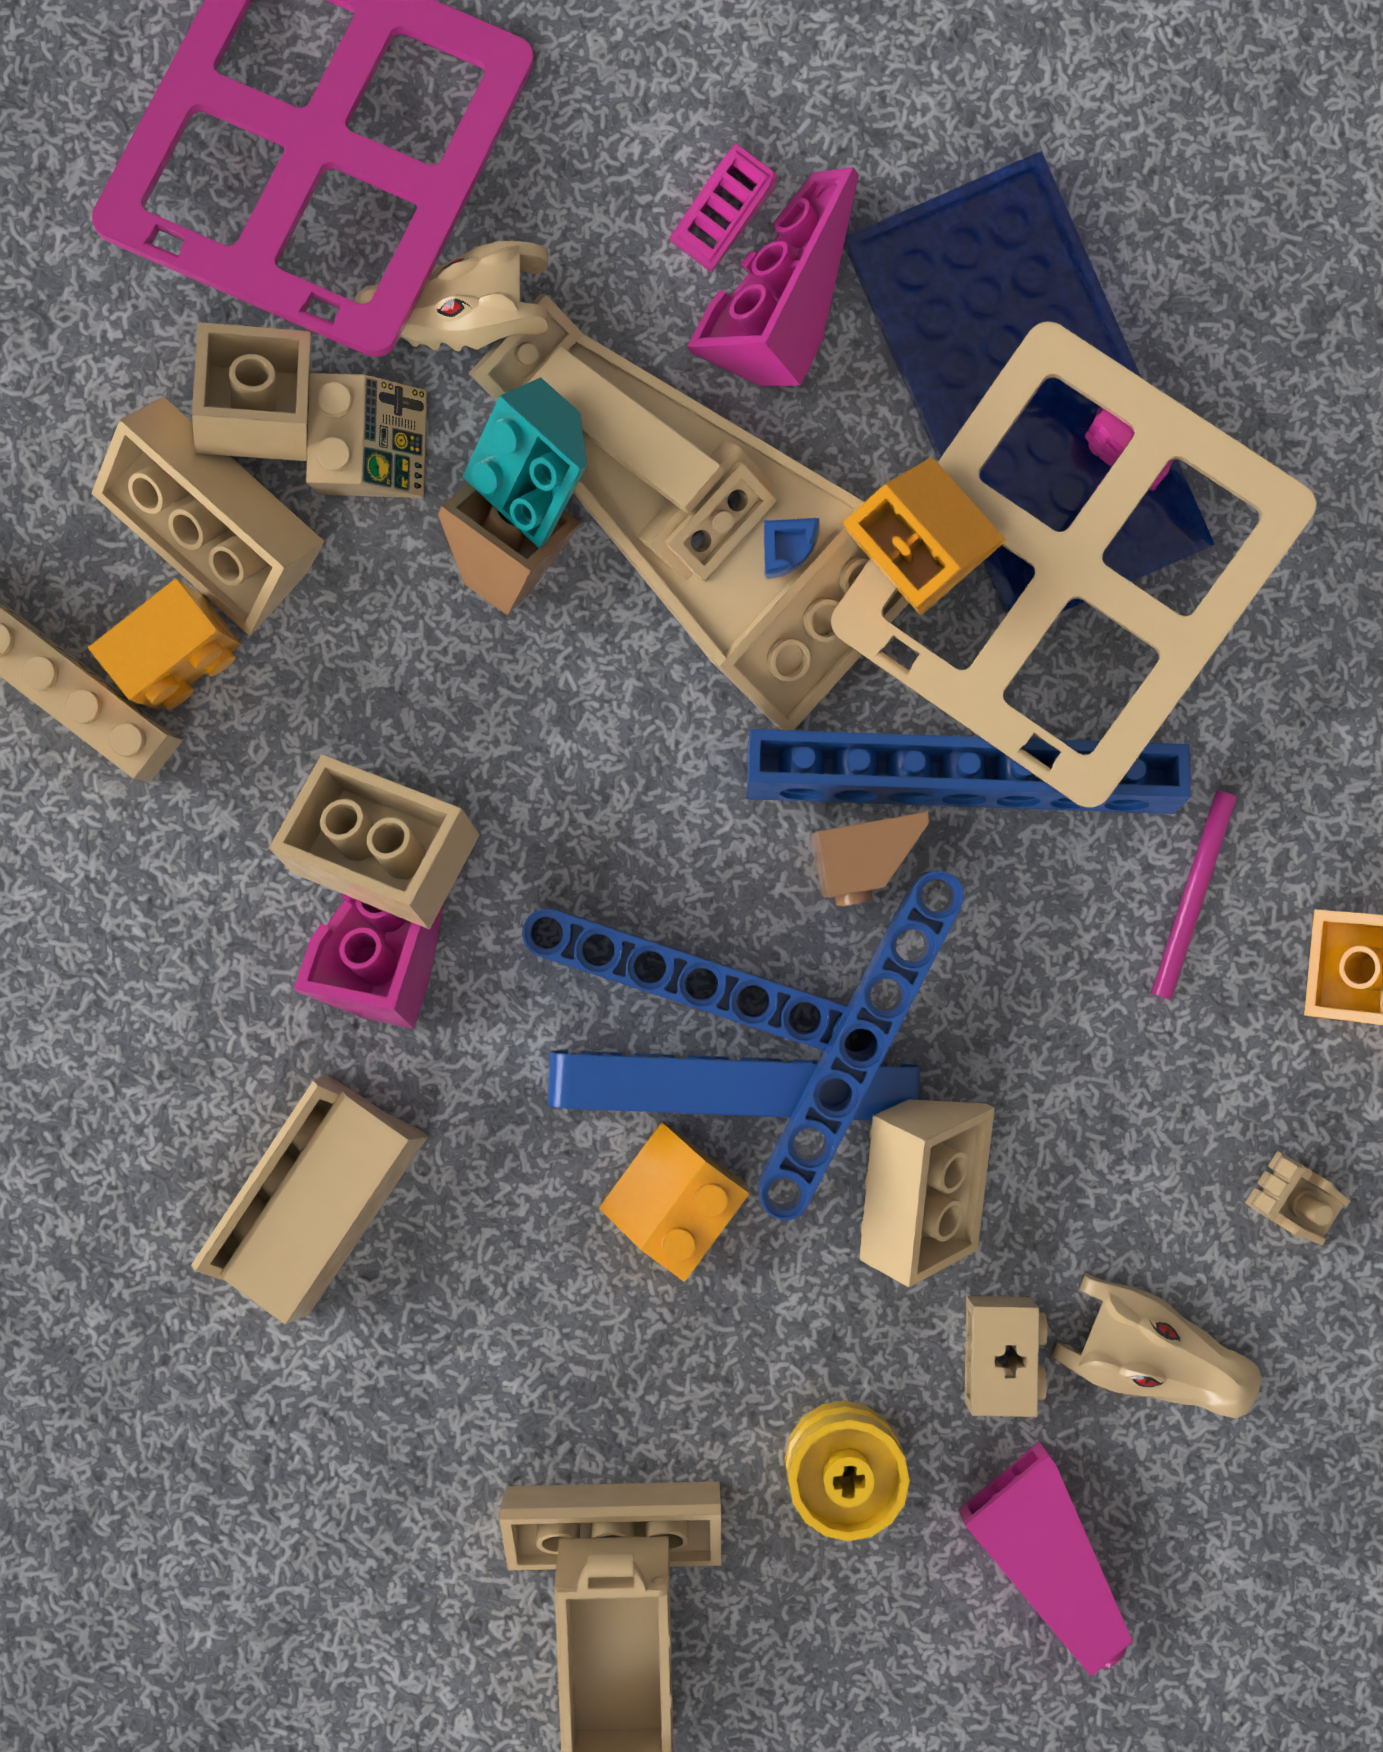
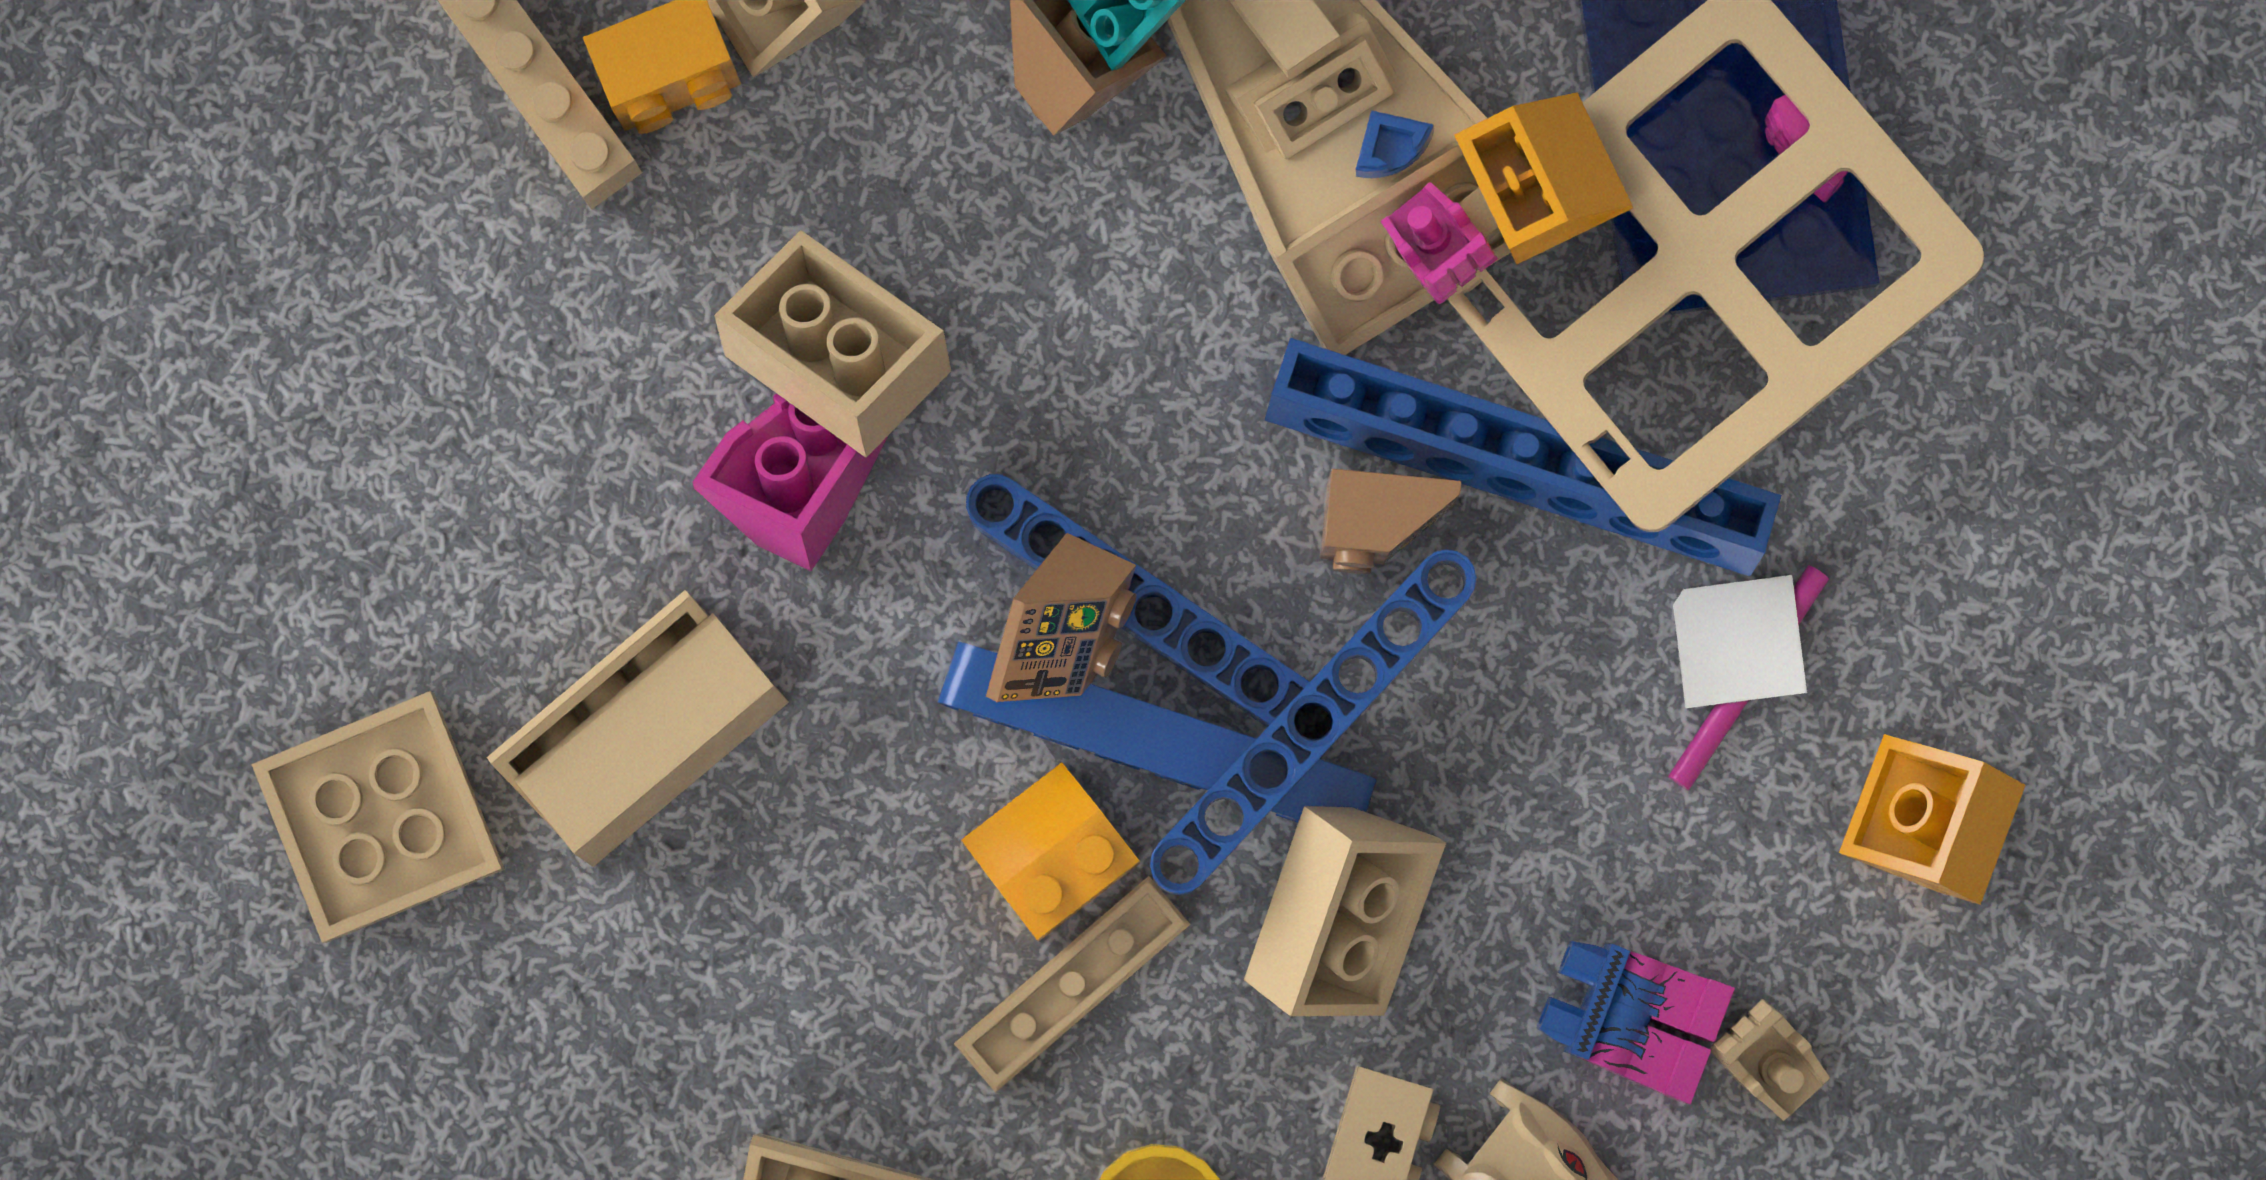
camera: 20 degrees right, 5 degrees down
(122, 1327) = (377, 817): none -> tan plate
(632, 1021) = (1064, 624): none -> medium nougat slope
(719, 1301) = (1072, 984): none -> tan tile
(851, 615) = (1438, 242): none -> dark pink hand
(1164, 1199) = (1616, 1013): none -> hips
(1180, 869) = (1739, 642): none -> white sticker

